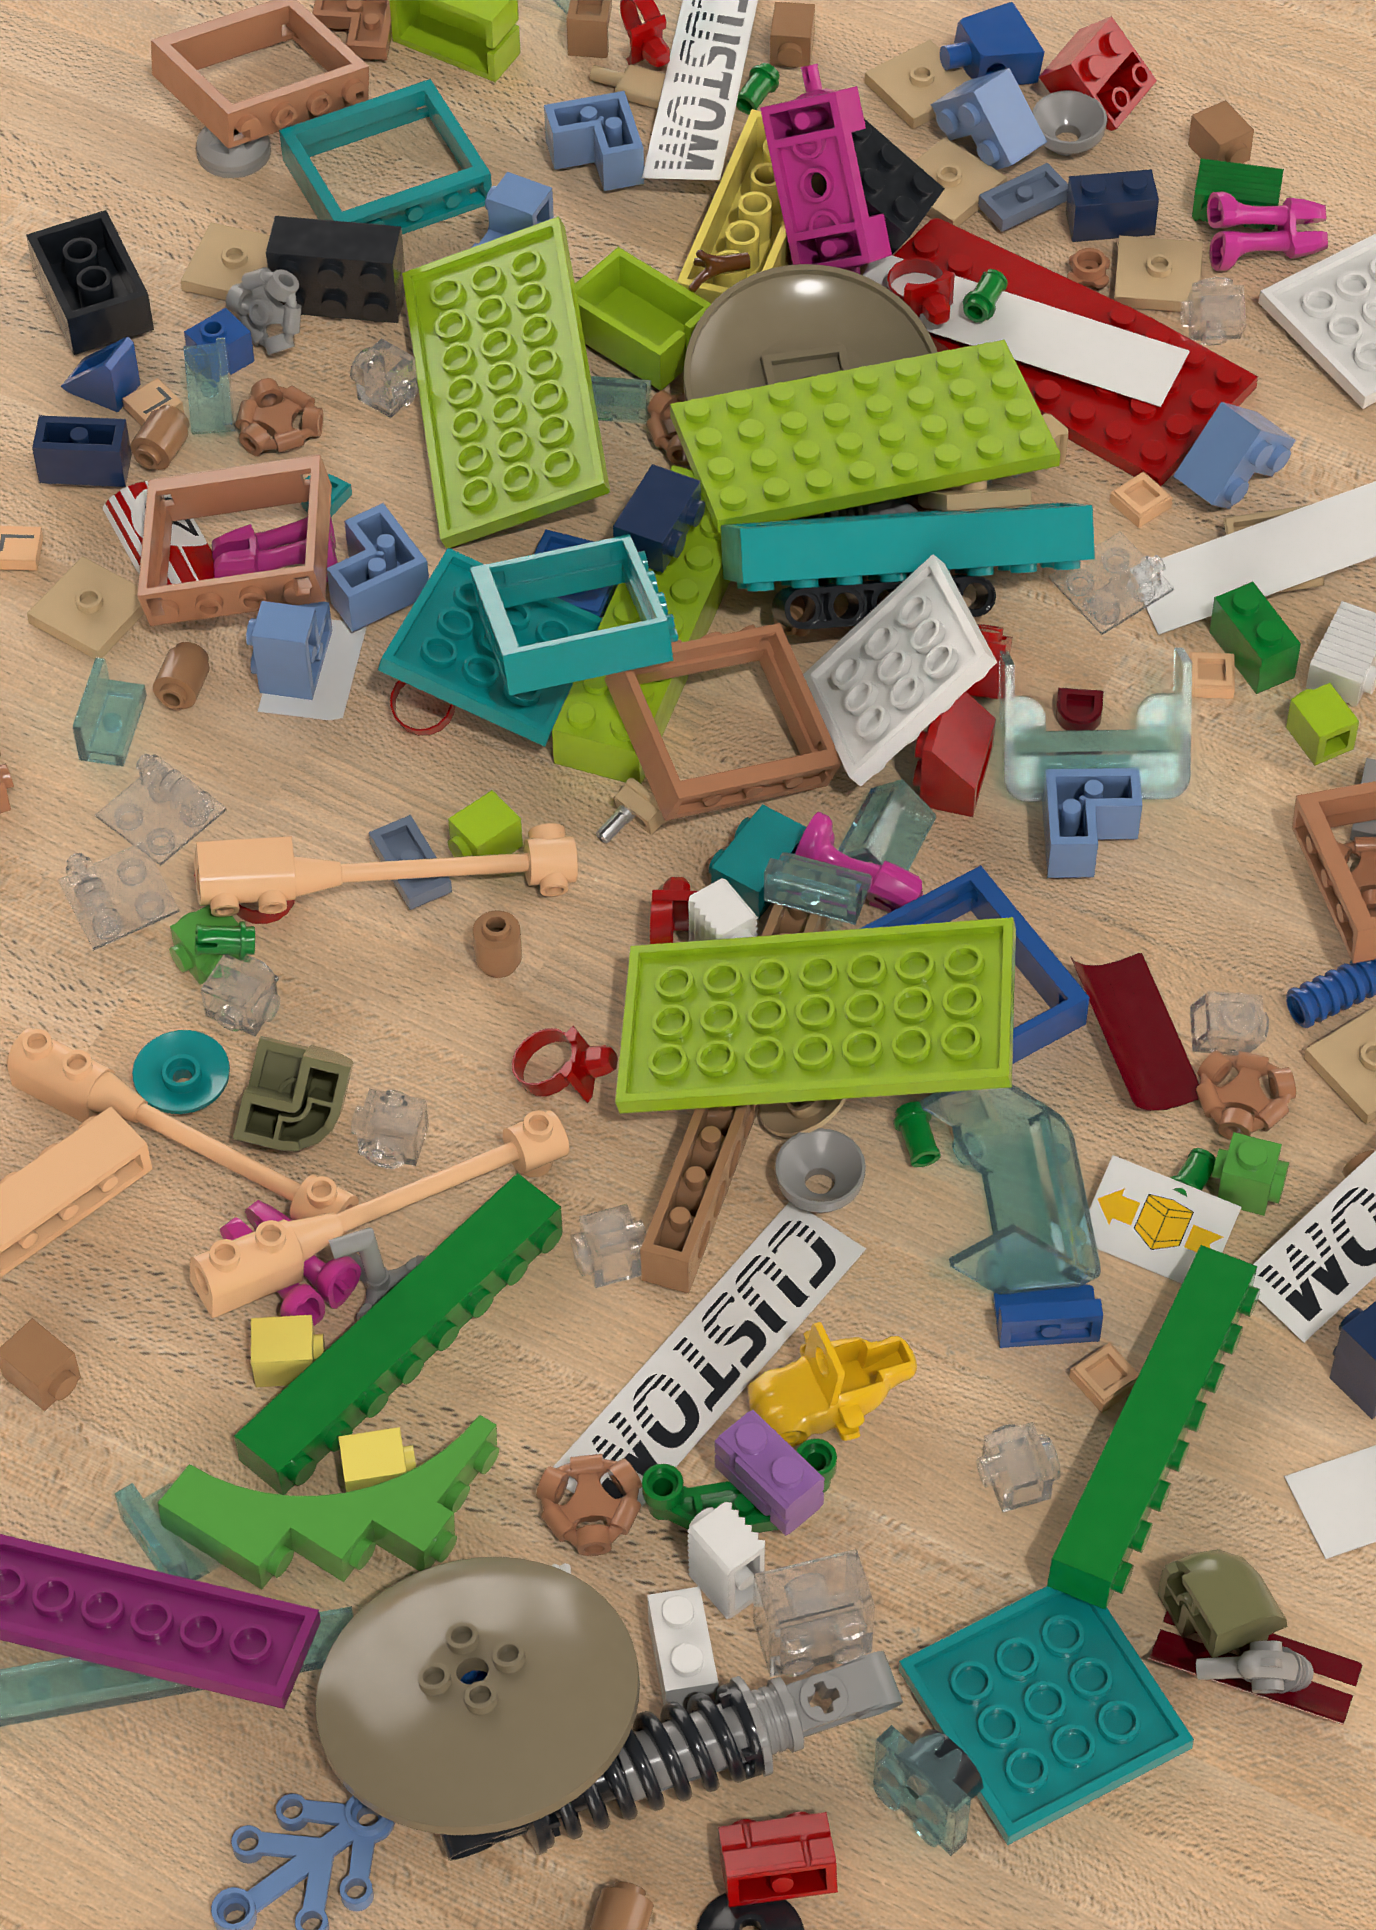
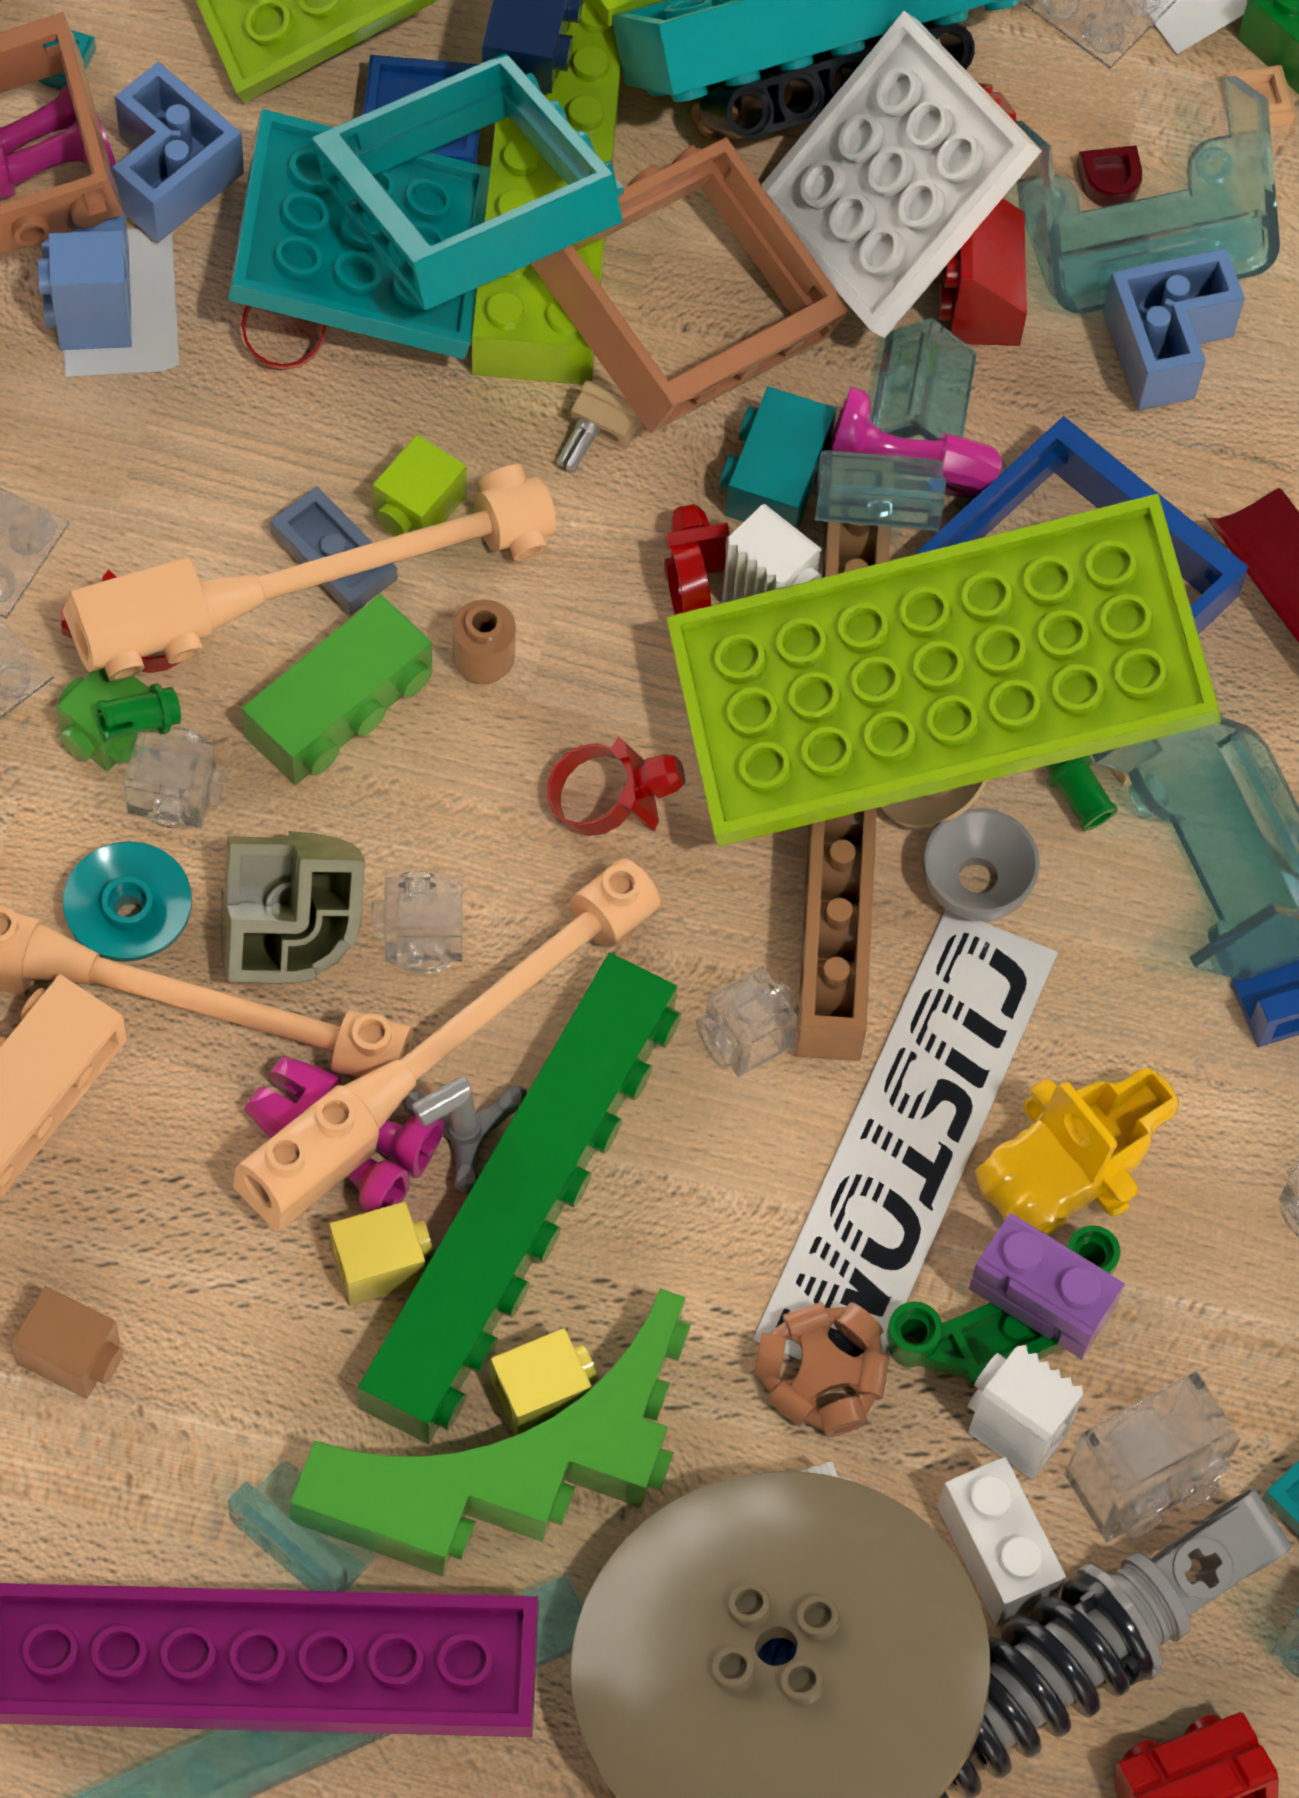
camera: 20 degrees left, 10 degrees up
(381, 957) = (338, 690): none -> bright green brick

